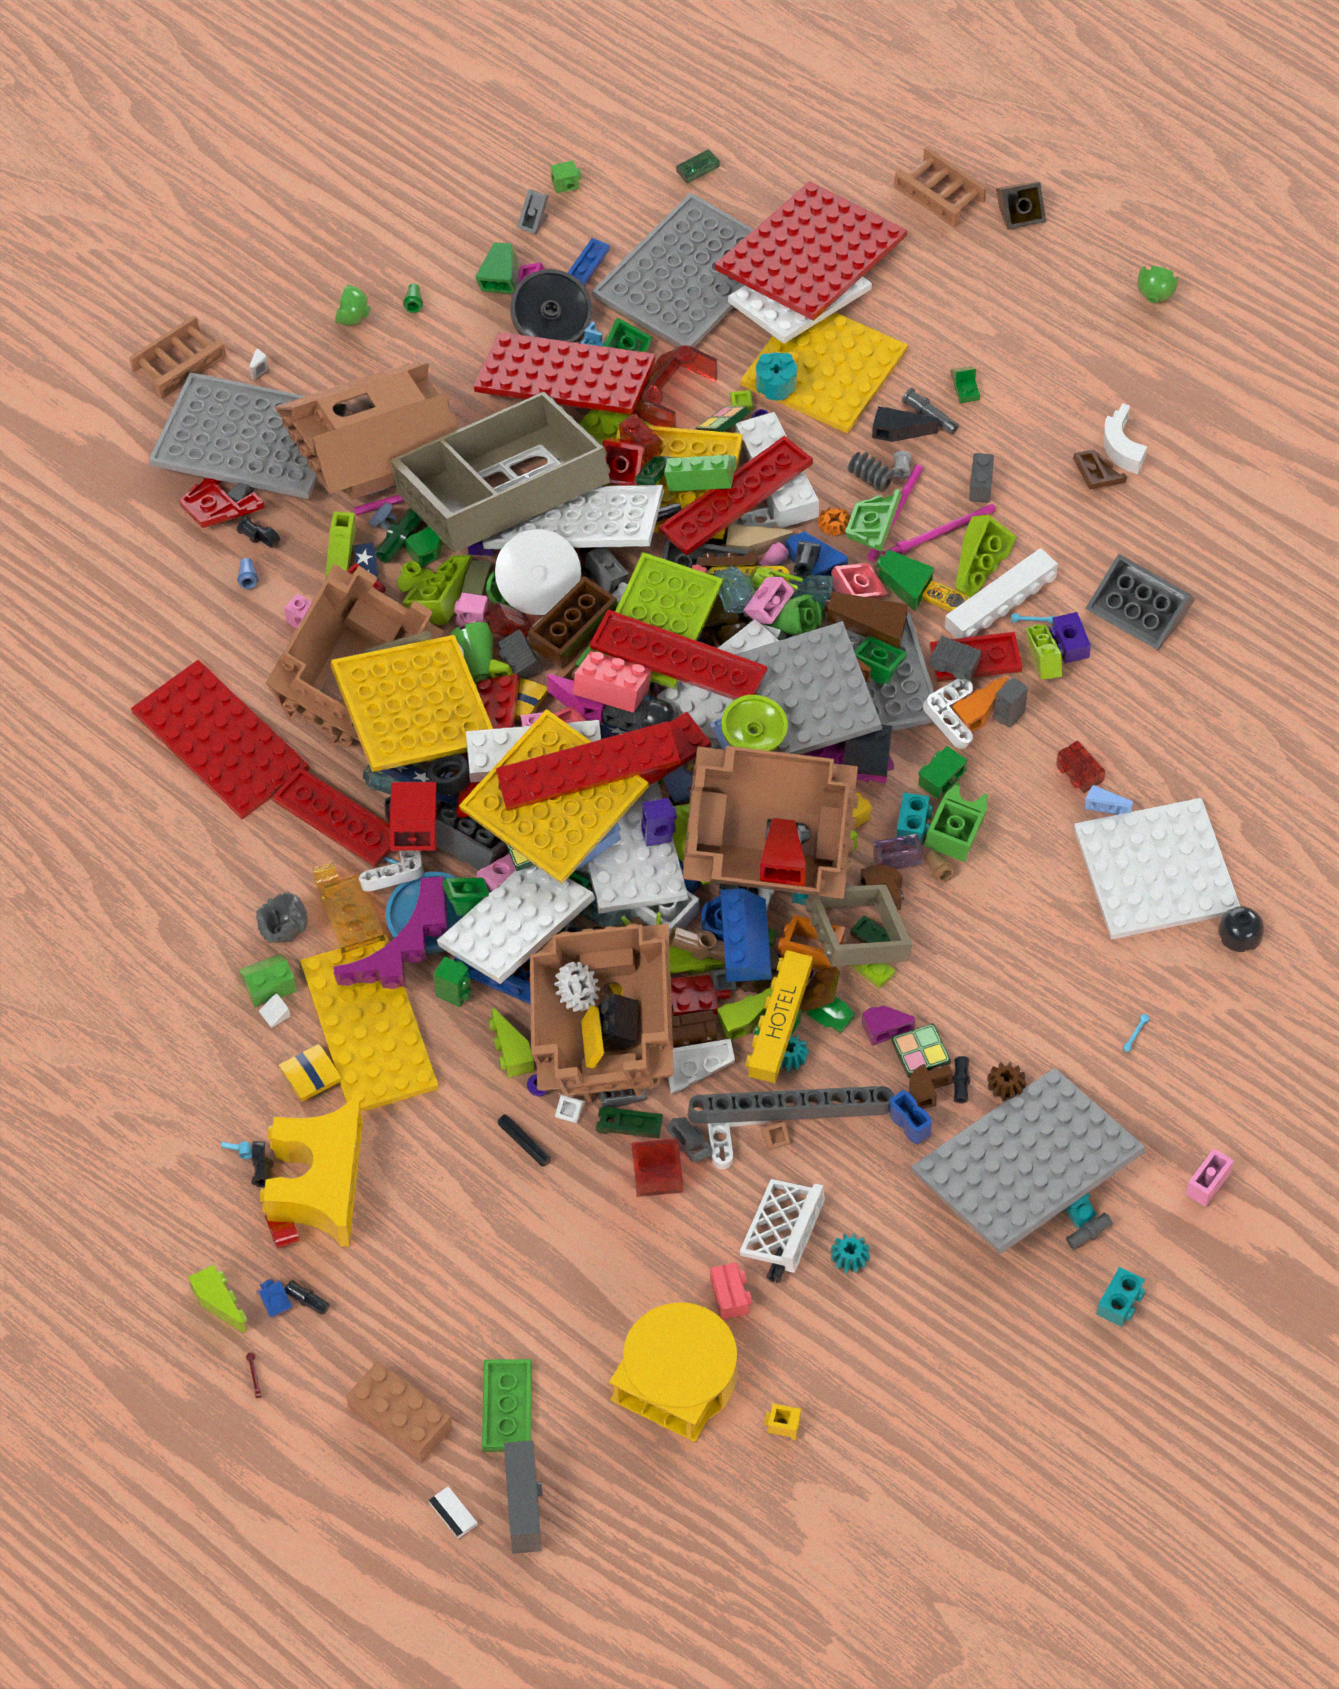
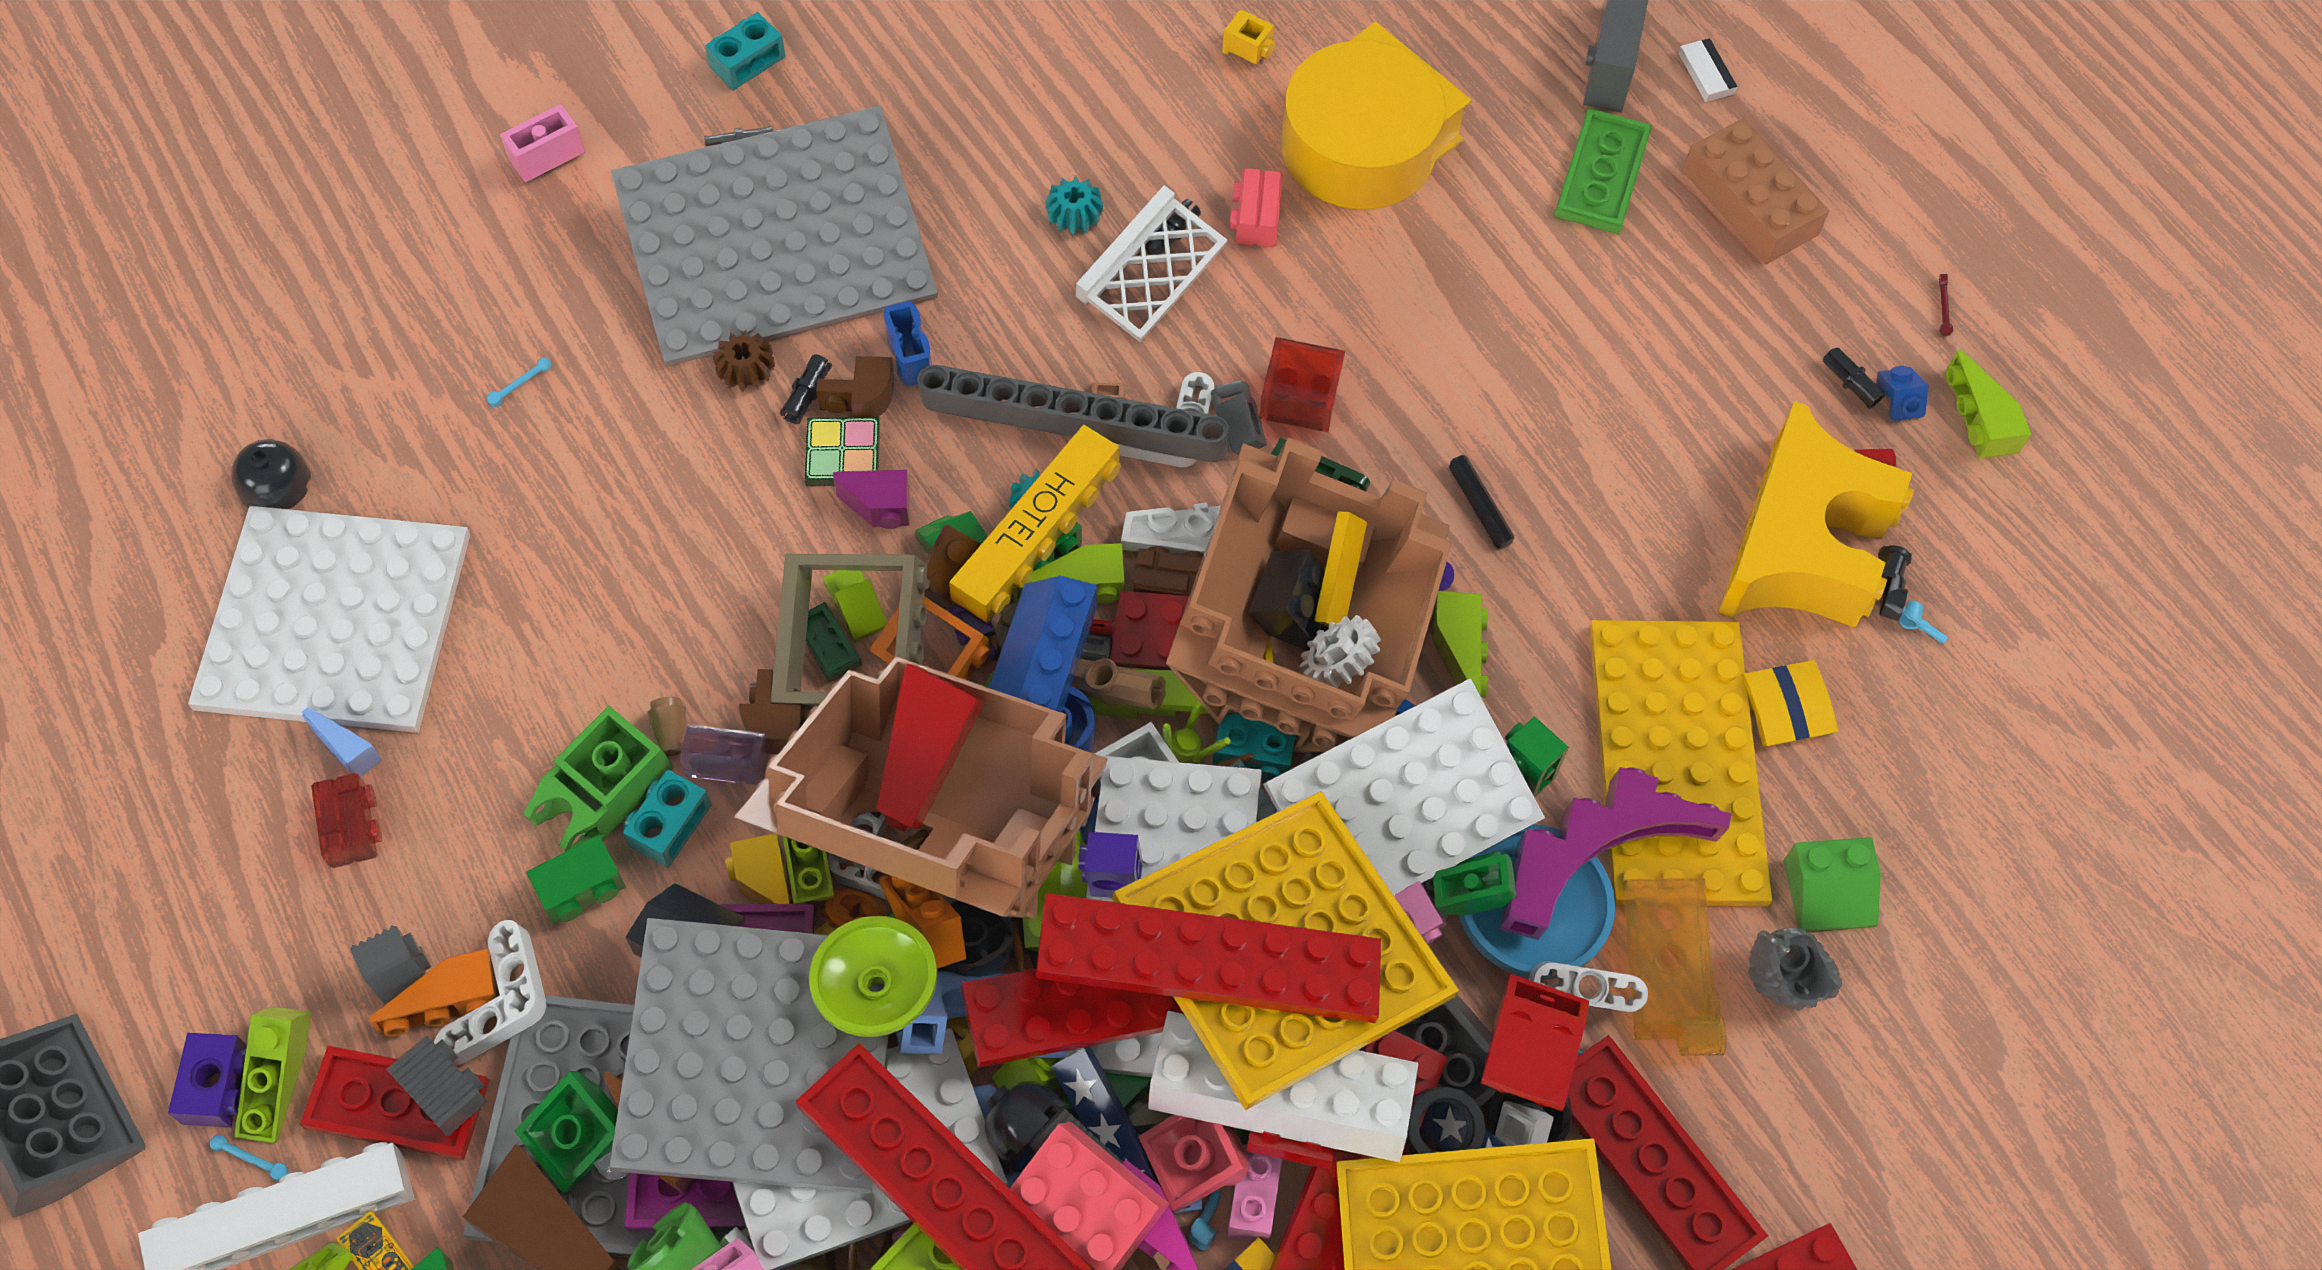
camera: 165 degrees left, 5 degrees up
(275, 1011) = (1827, 823): white slope -> none

